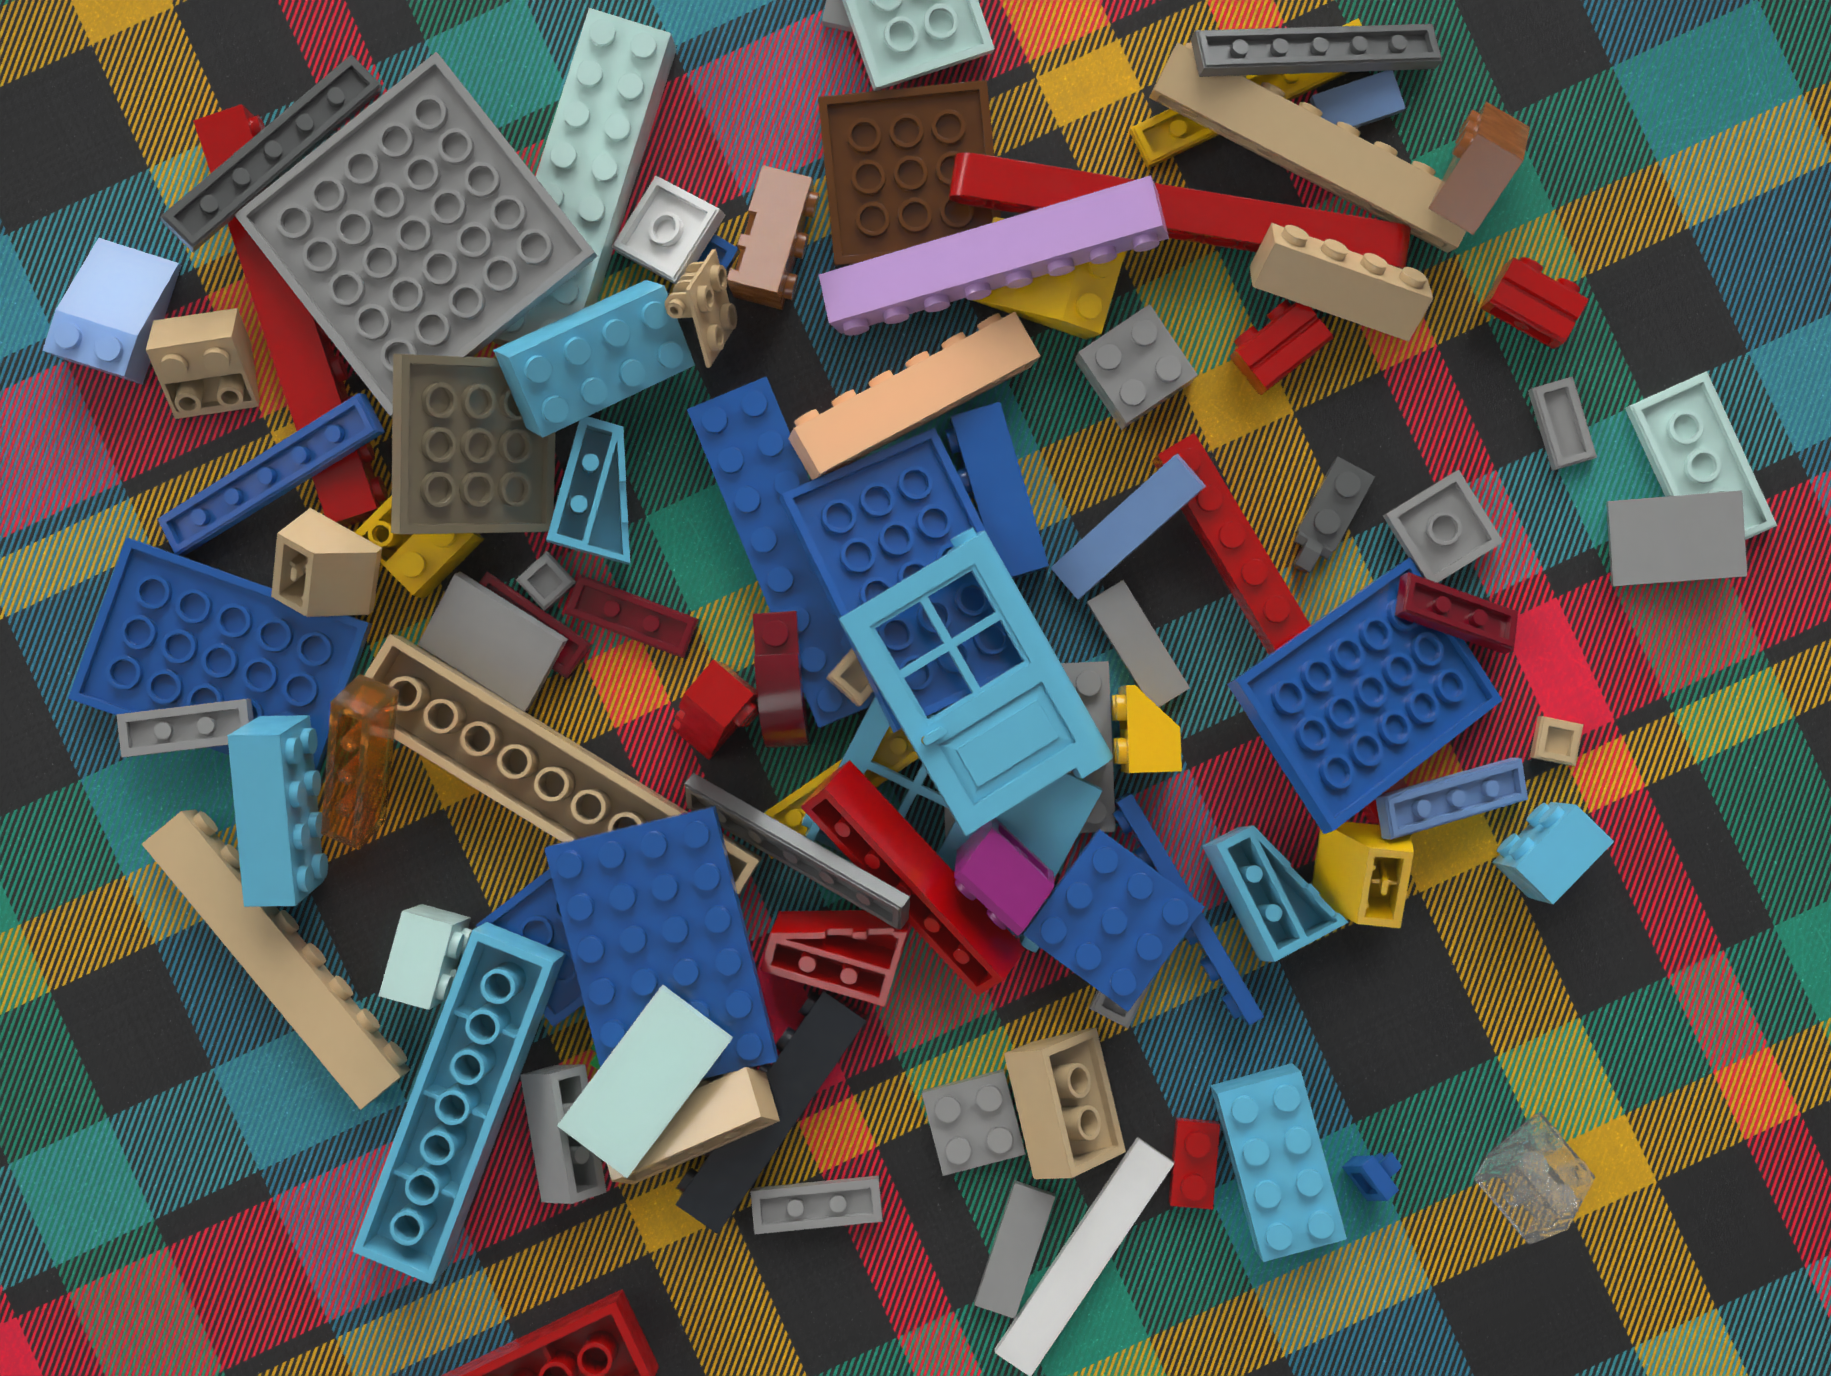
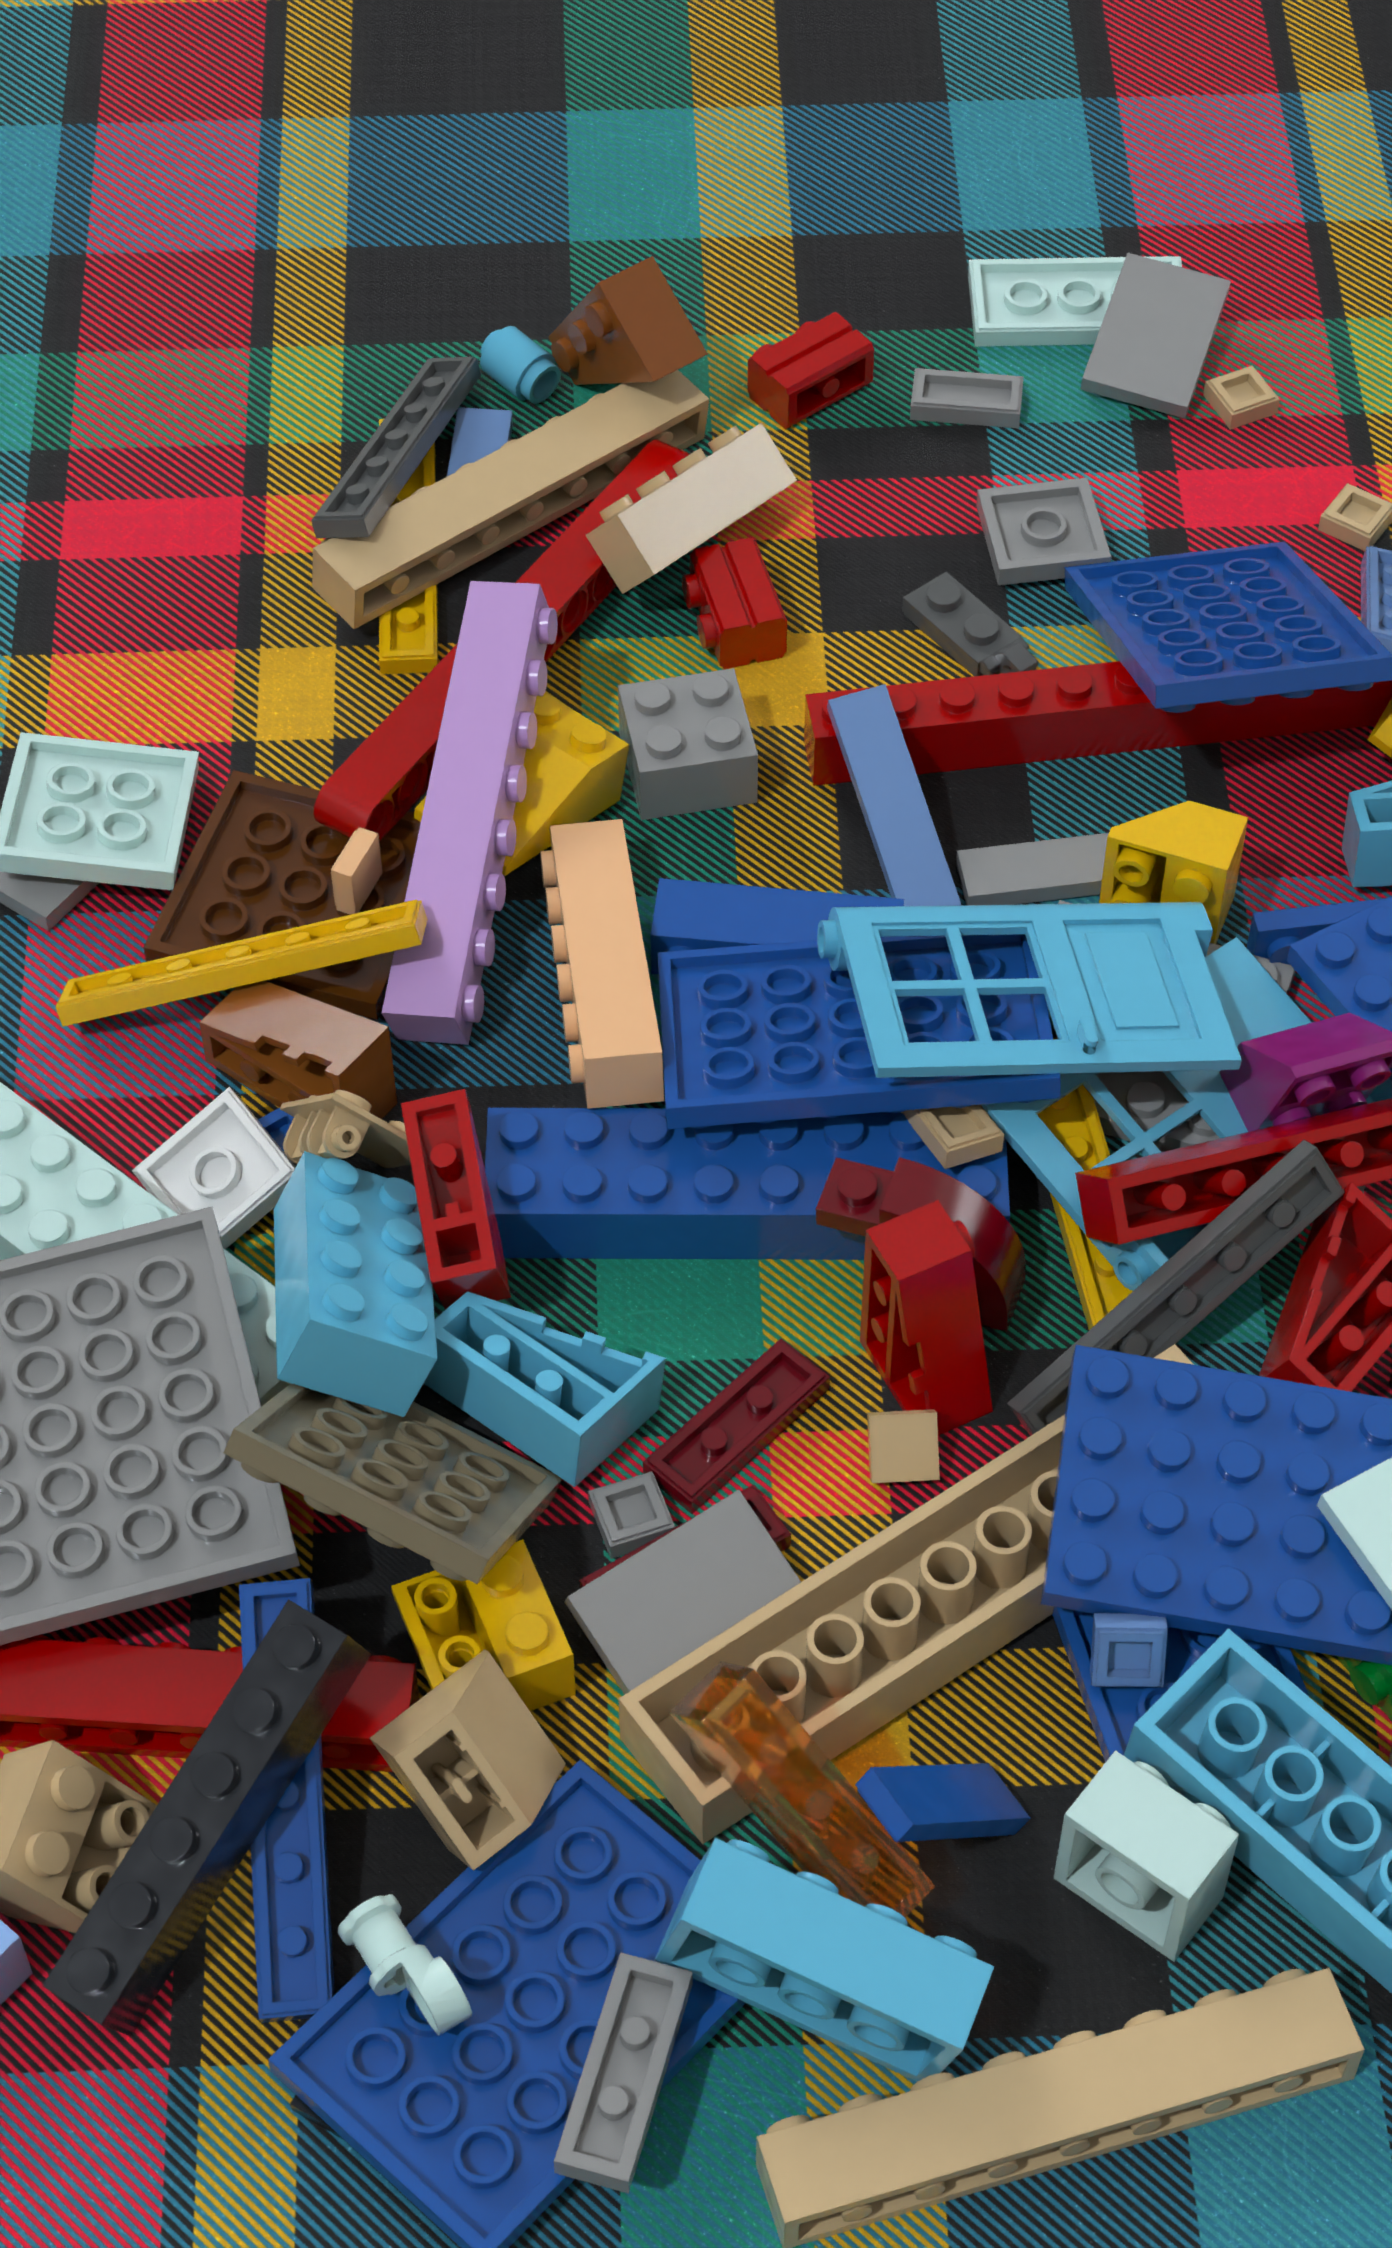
camera: 70 degrees left, 35 degrees down
(195, 580) = (402, 1964): none -> light aqua connector
(224, 445) = (207, 1820): none -> black brick
(406, 836) = (941, 1801): none -> blue tile
(544, 903) = (1128, 1650): none -> medium blue tile
(649, 720) = (903, 1446): none -> tan tile
(670, 393) = (454, 1199): none -> red slope
(816, 171) = (242, 962): none -> yellow tile
(920, 205) = (356, 871): none -> light nougat tile
(1452, 92) = (519, 365): none -> medium azure brick
(1456, 613) = (1156, 541): dark red tile -> none
(1647, 619) = (1241, 397): none -> tan tile

